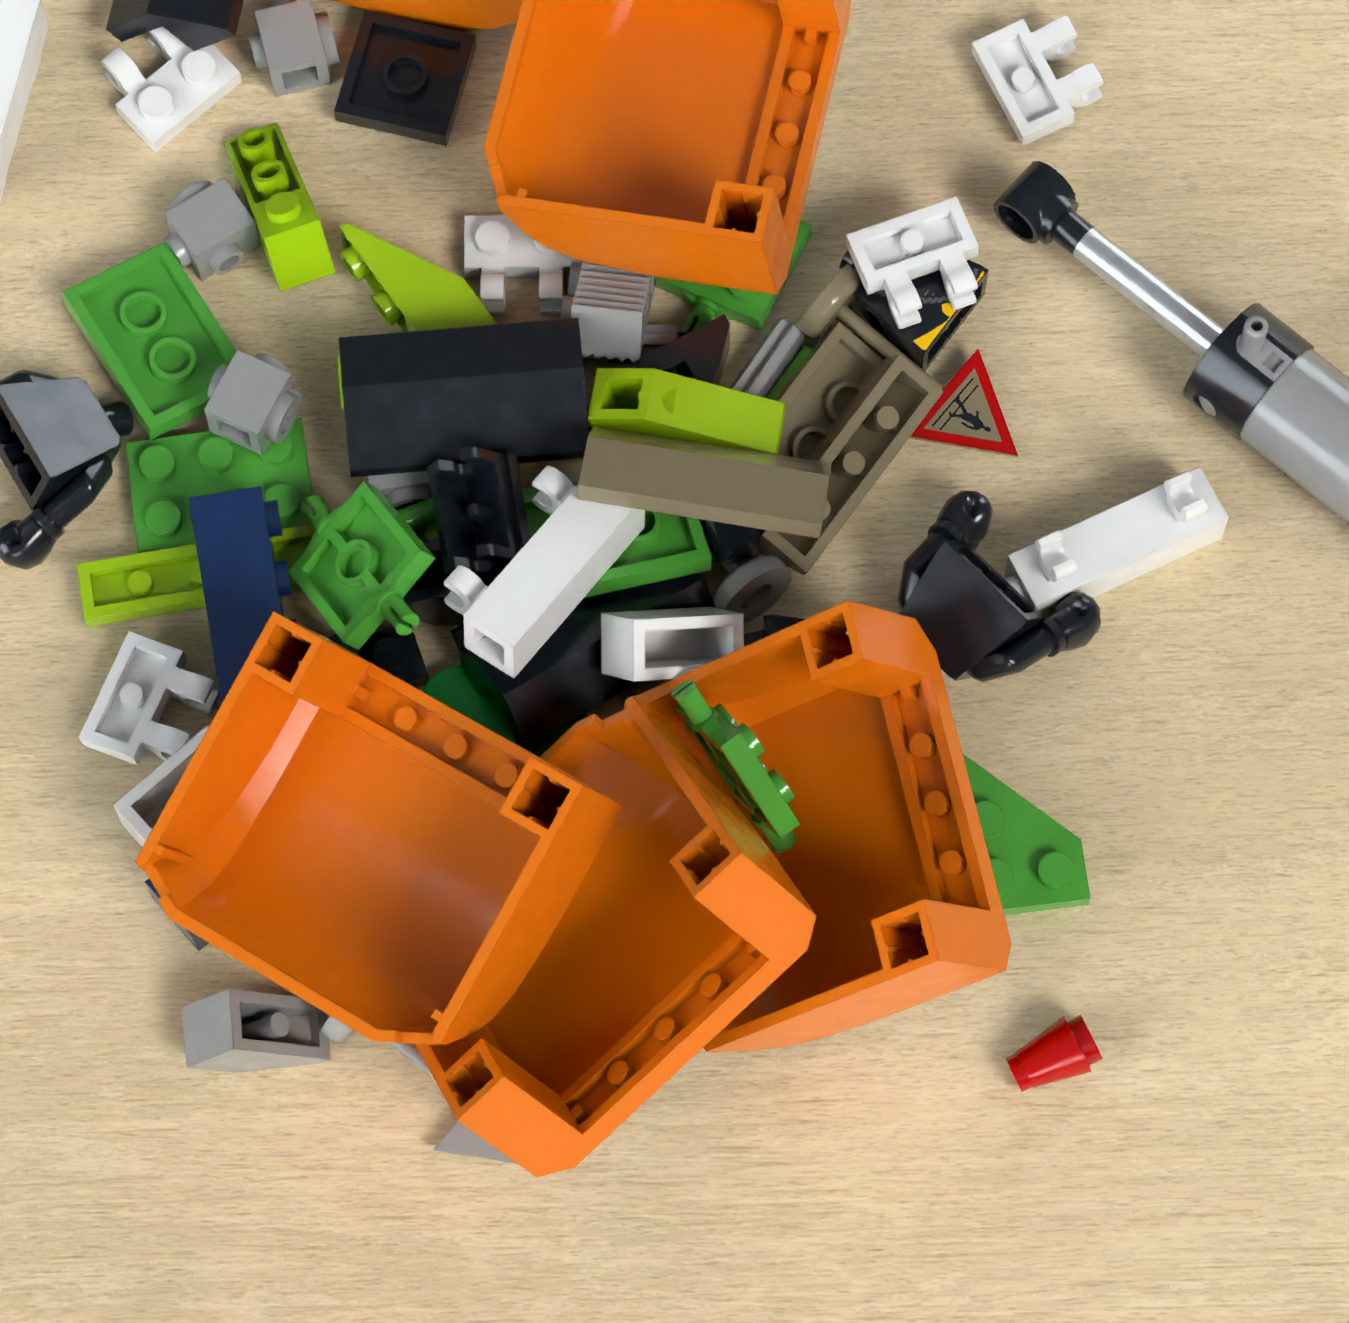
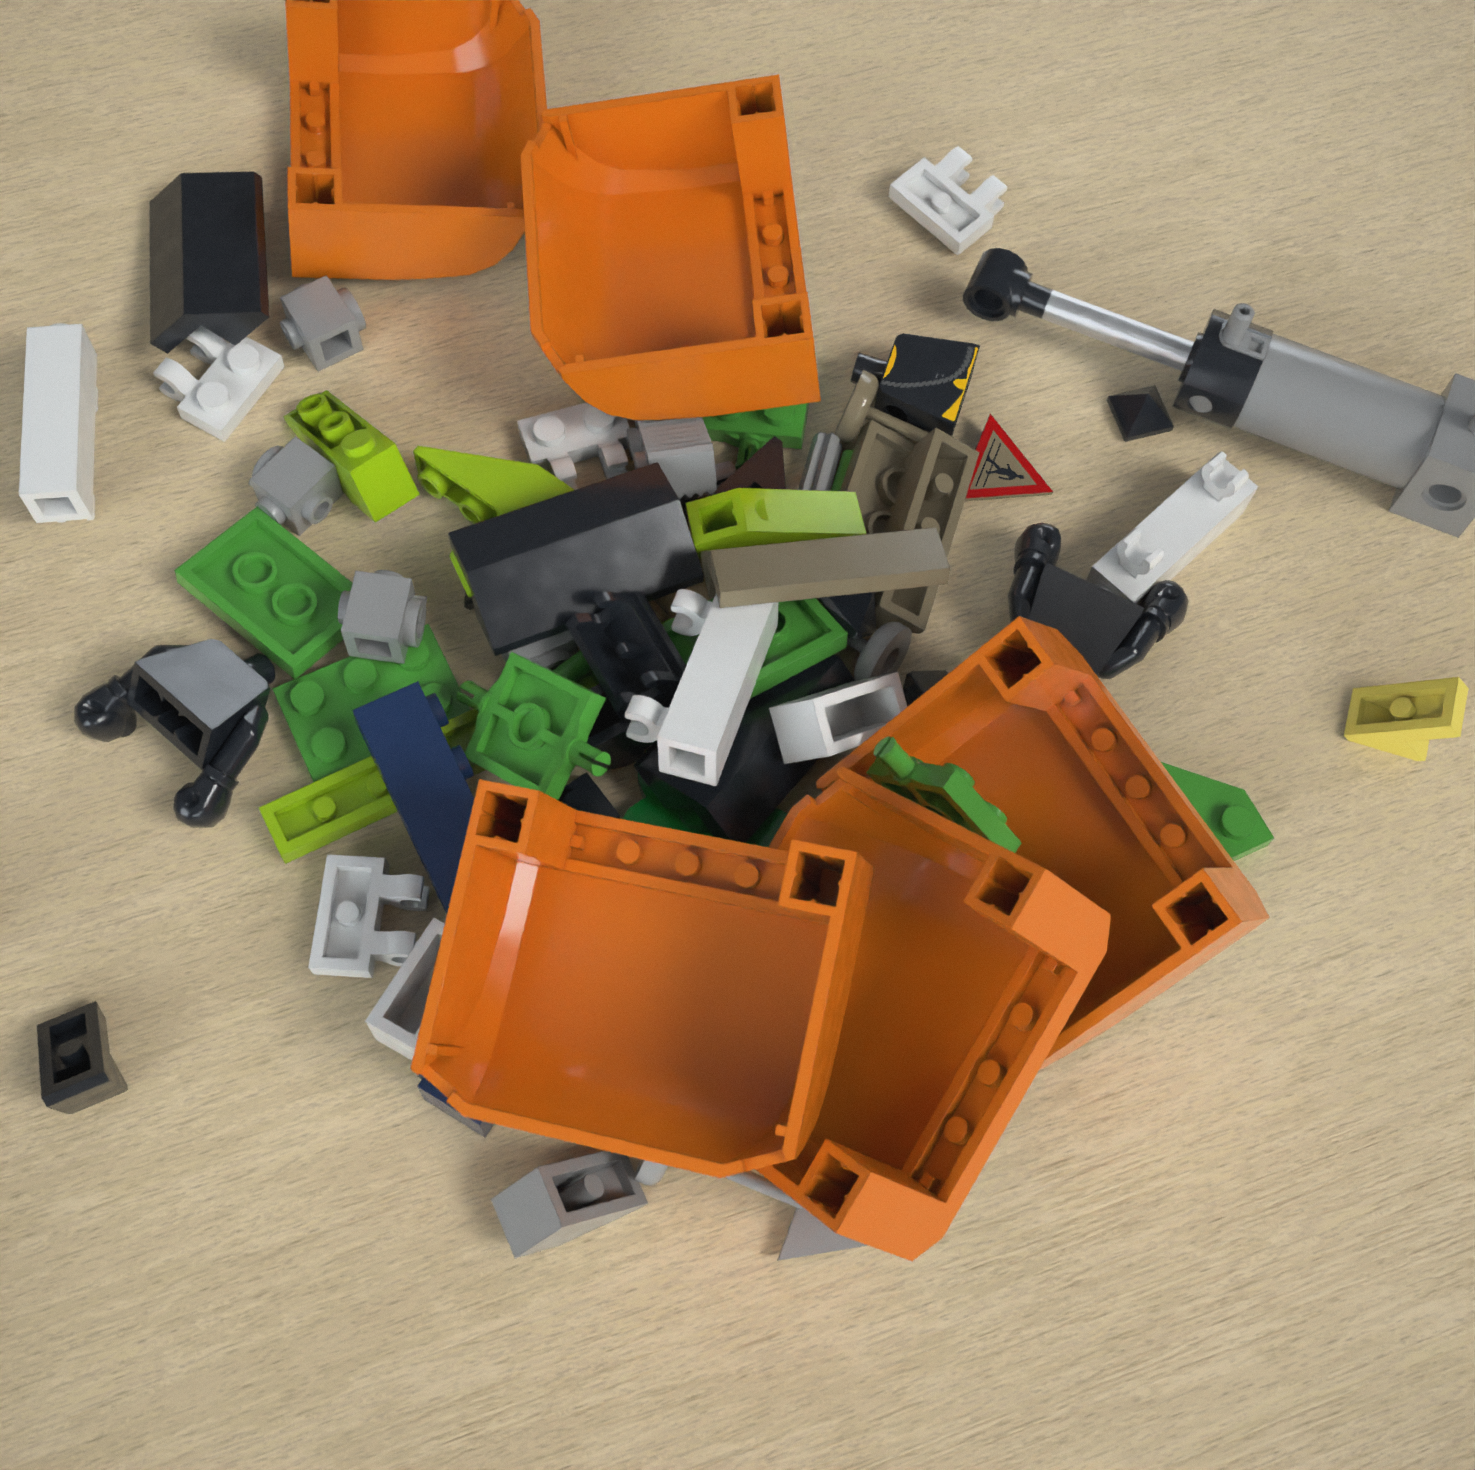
camera: 25 degrees left, 5 degrees down
(405, 78) = (428, 325): black plate -> none
(914, 246) = (916, 337): white plate -> none
(1055, 1054) = (1305, 984): red cone -> none
(1153, 391) = (1140, 413): none -> black slope
(1284, 813) = (1406, 715): none -> light yellow slope

